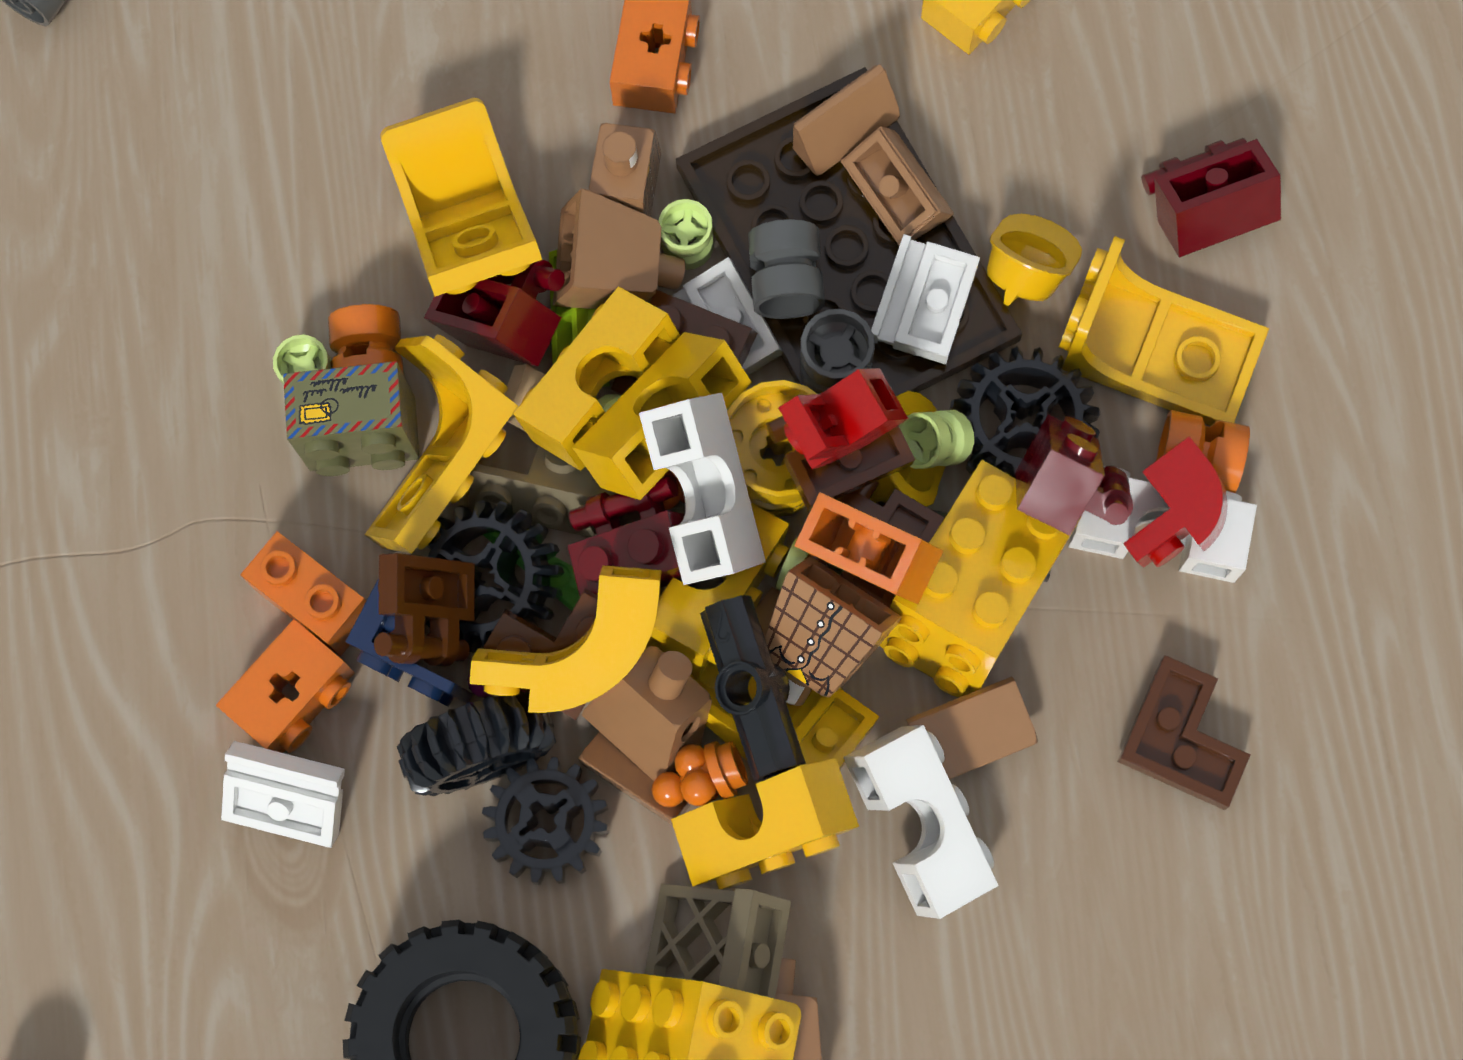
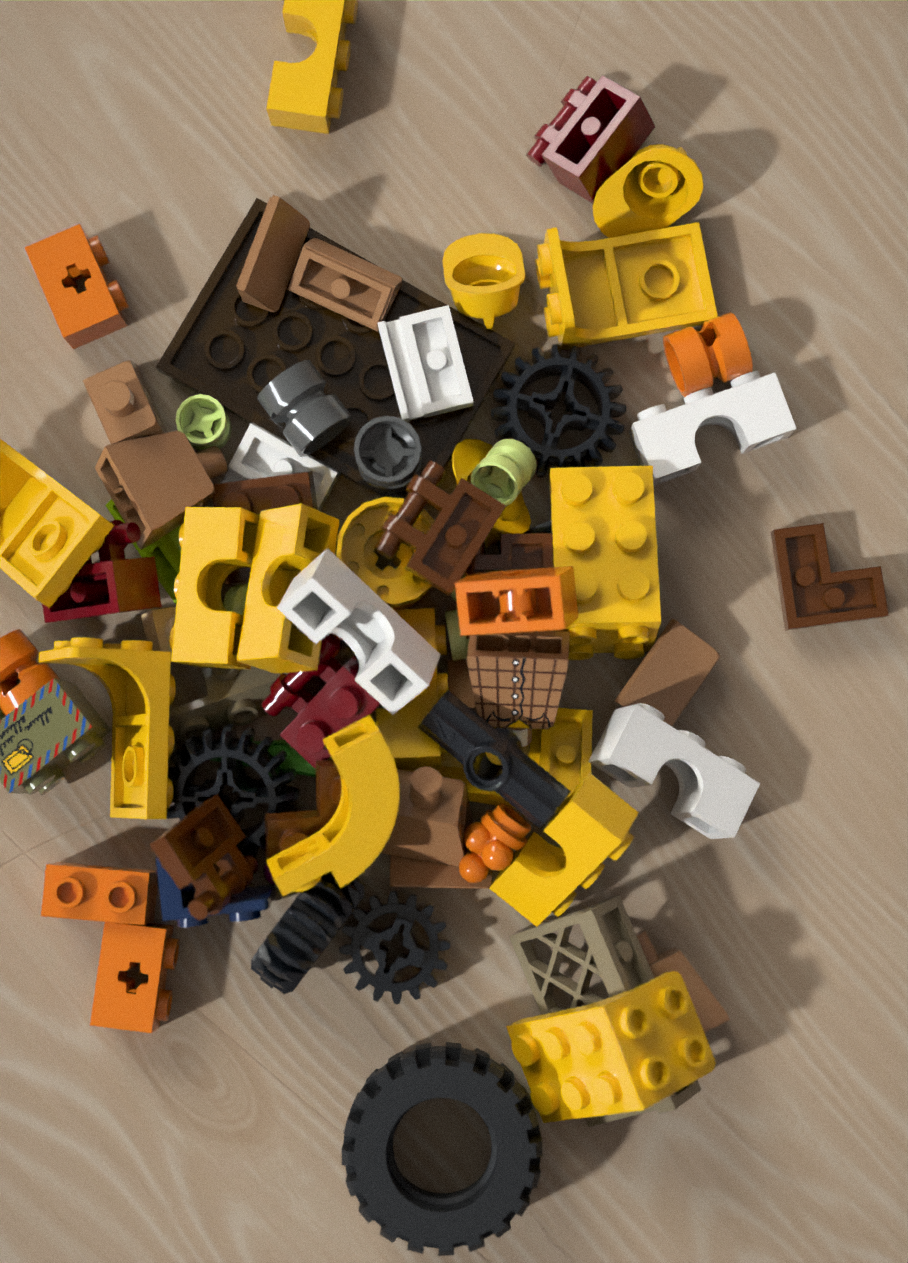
camera: 35 degrees left, 10 degrees up
(282, 794) = (184, 1055): white plate -> none
(842, 417) = (435, 513): red brick -> none
(1067, 476) = (629, 448): dark red brick -> none
(1195, 502) = (730, 400): red brick -> none
(1236, 271) = (648, 192): none -> yellow piece

